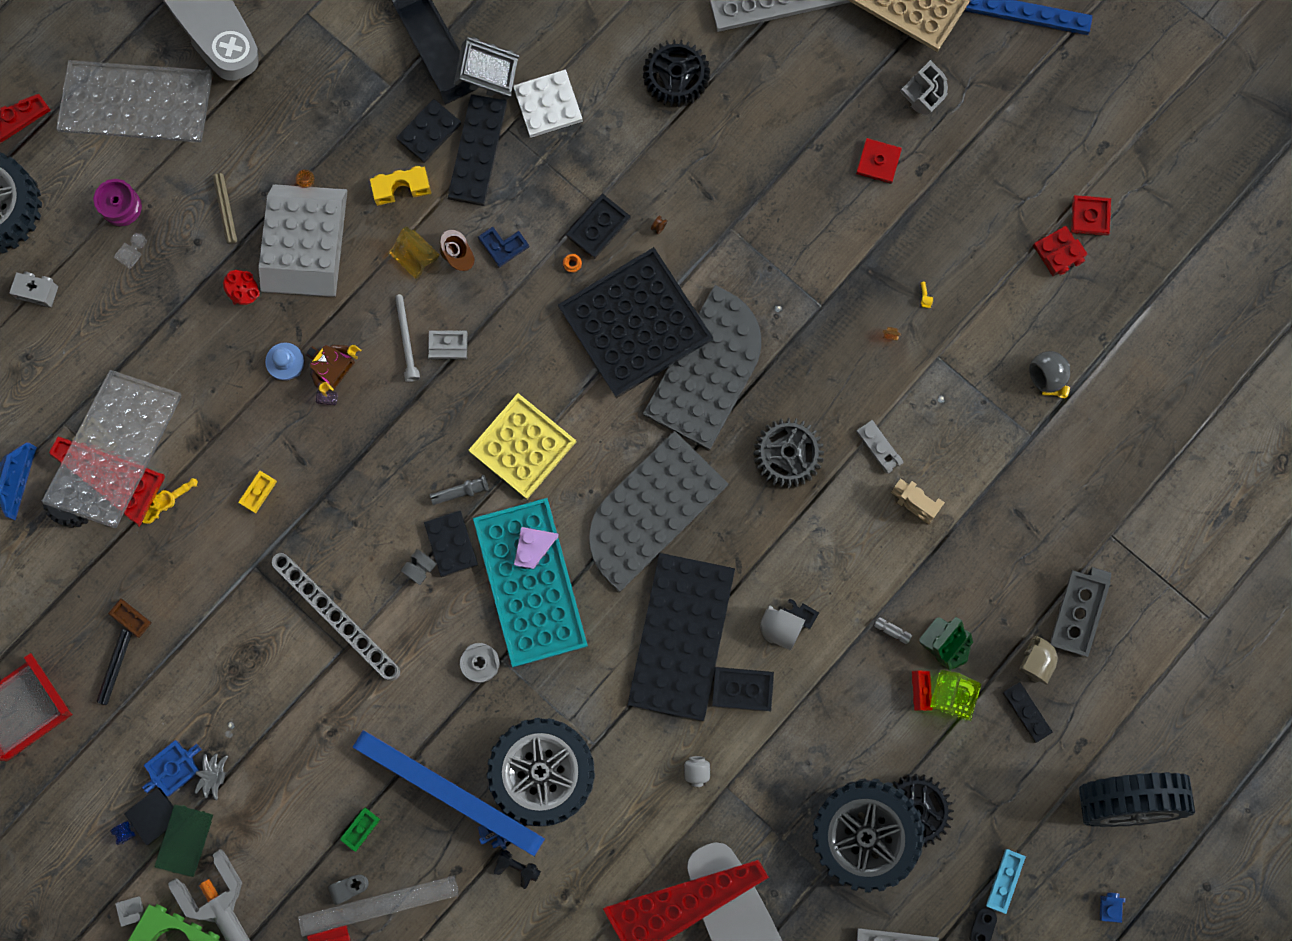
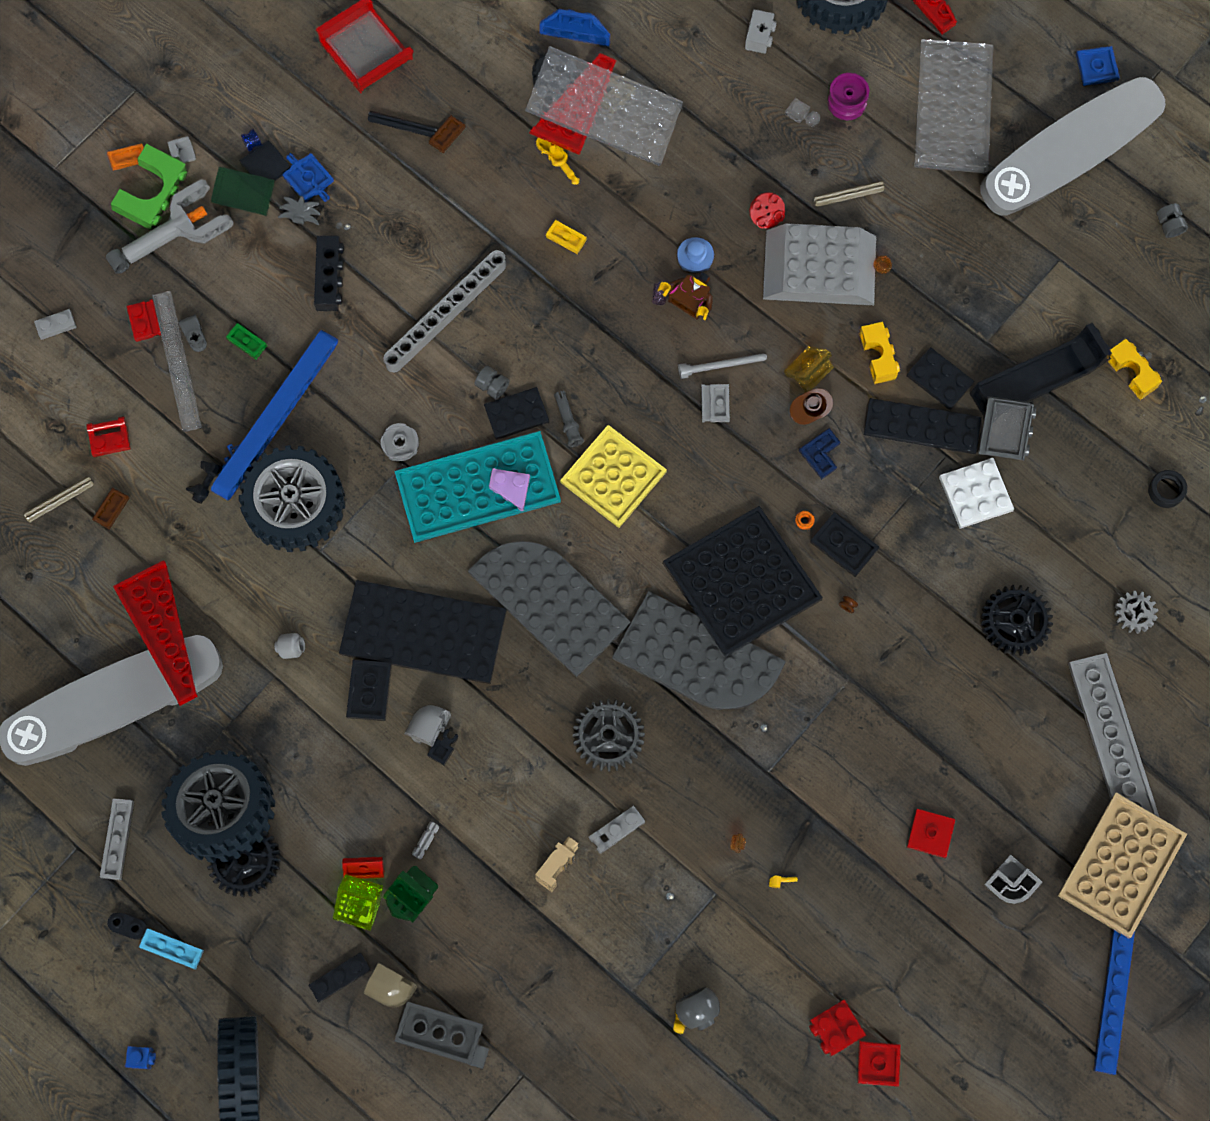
camera: 90 degrees right, 5 degrees down
(255, 746) = (328, 246): none -> black brick

